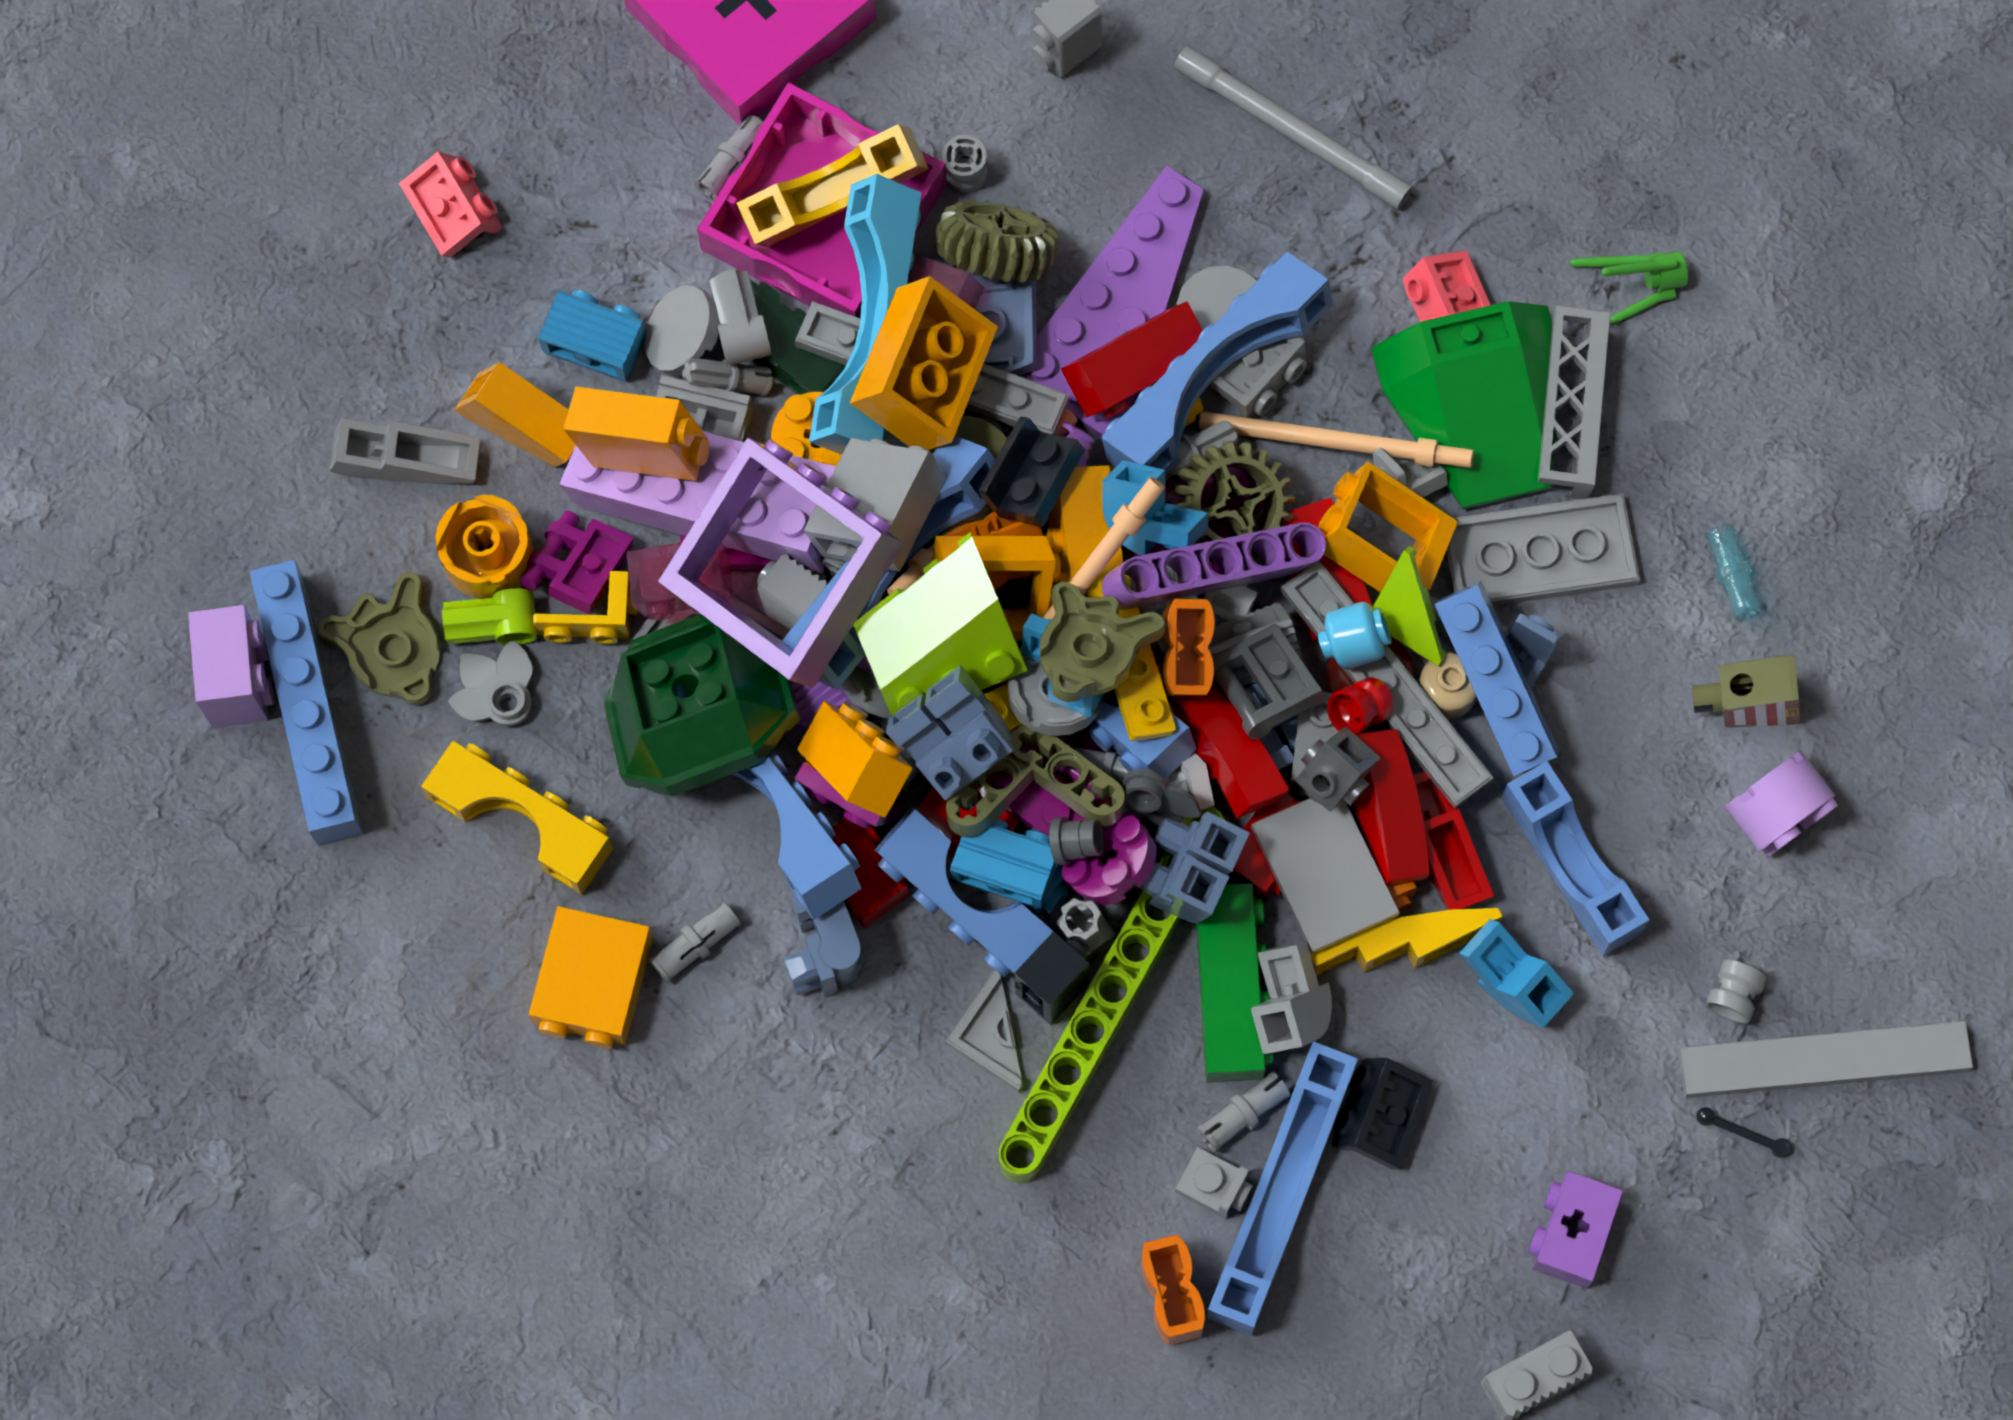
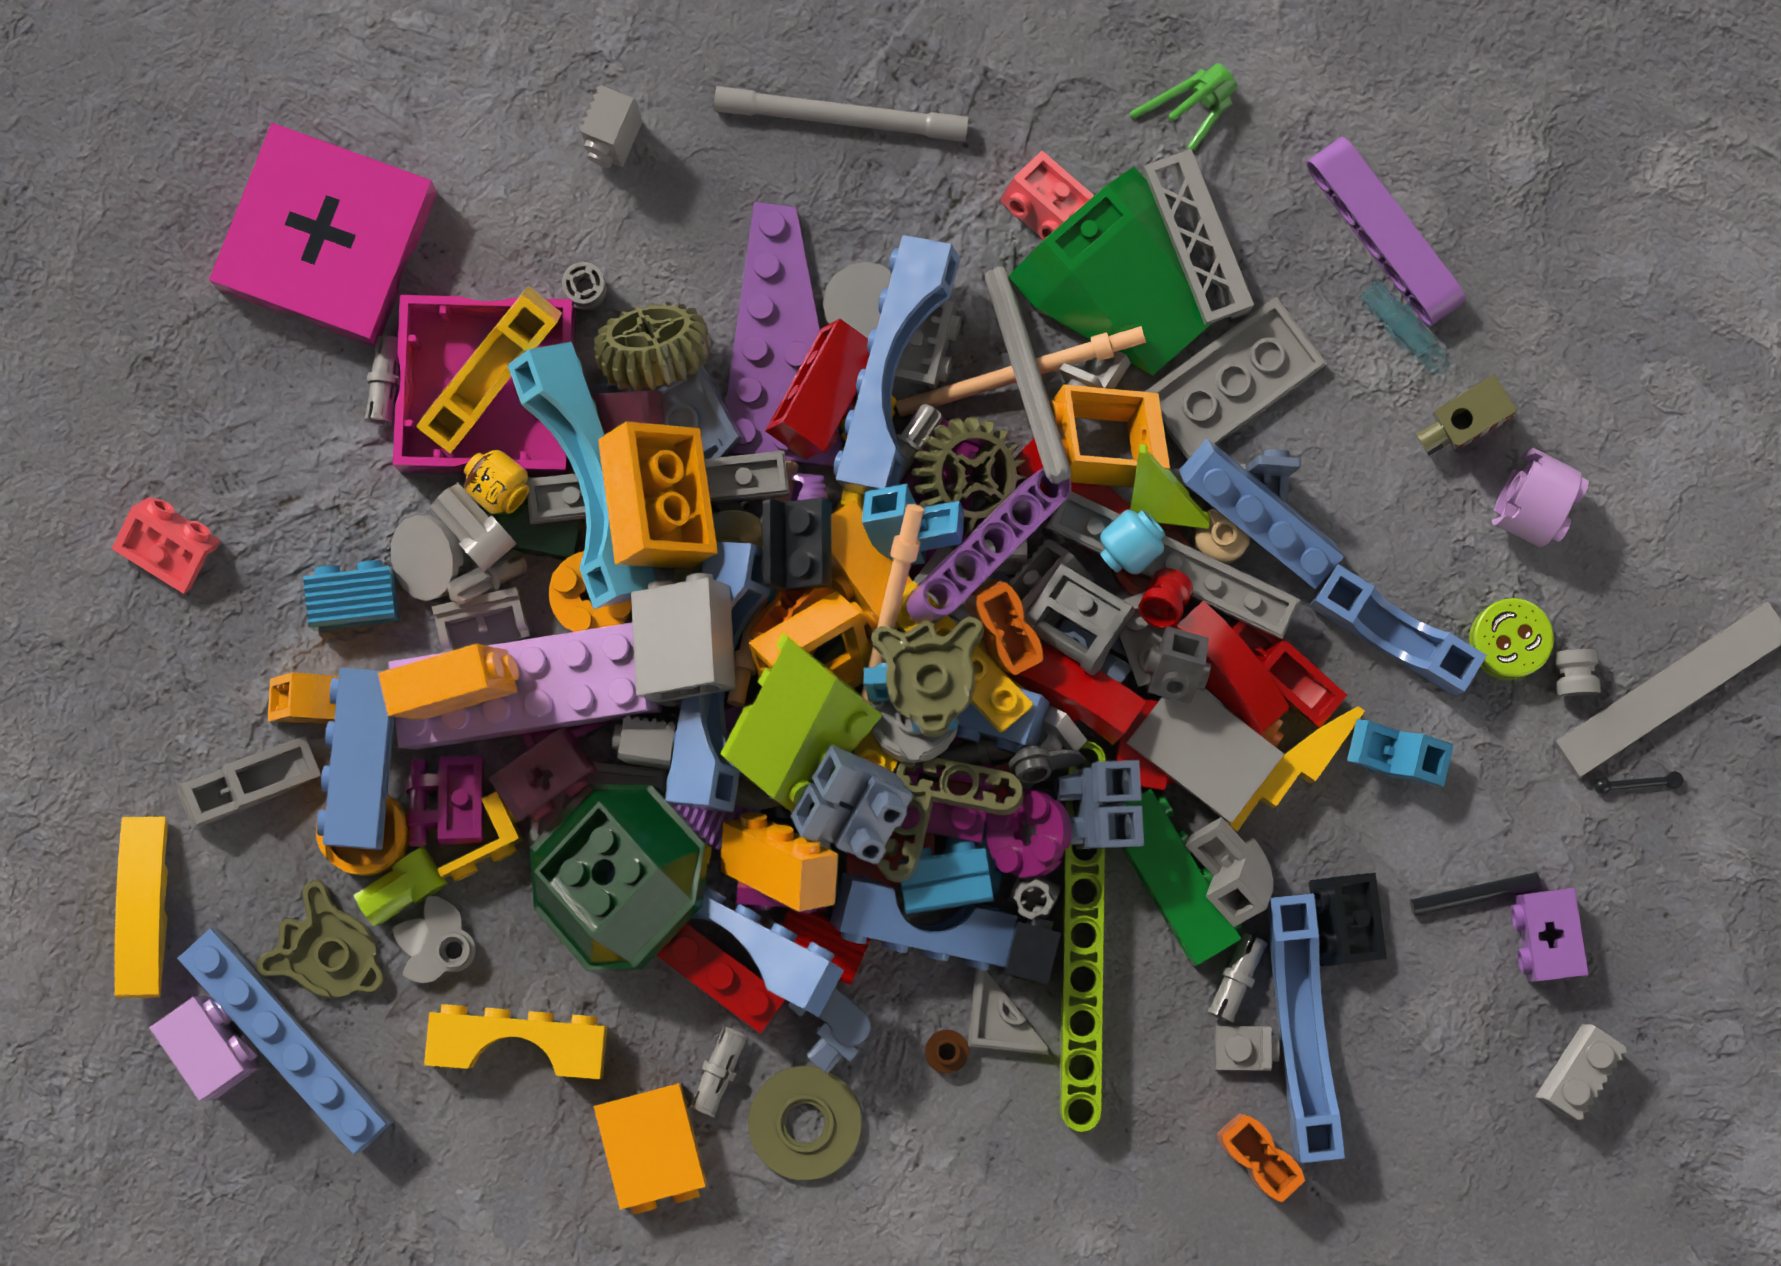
camera: 35 degrees left, 10 degrees up
(241, 515) = (140, 907): none -> yellow slope
(512, 475) = (358, 764): none -> medium blue brick
(744, 851) = (721, 977): none -> red brick
(757, 1072) = (813, 1158): none -> olive piece
(783, 288) = (496, 482): none -> yellow head
(844, 601) = (622, 803): medium lavender window -> none
(925, 1050) = (936, 1041): none -> reddish brown plate
(1075, 839) = (997, 837): dark grey piece -> none
(1338, 439) = (1028, 375): none -> light grey axle
(1520, 1154) = (1475, 894): none -> black bar
(1687, 927) = (1513, 637): none -> lime head
(1763, 485) = (1386, 231): none -> medium lavender beam

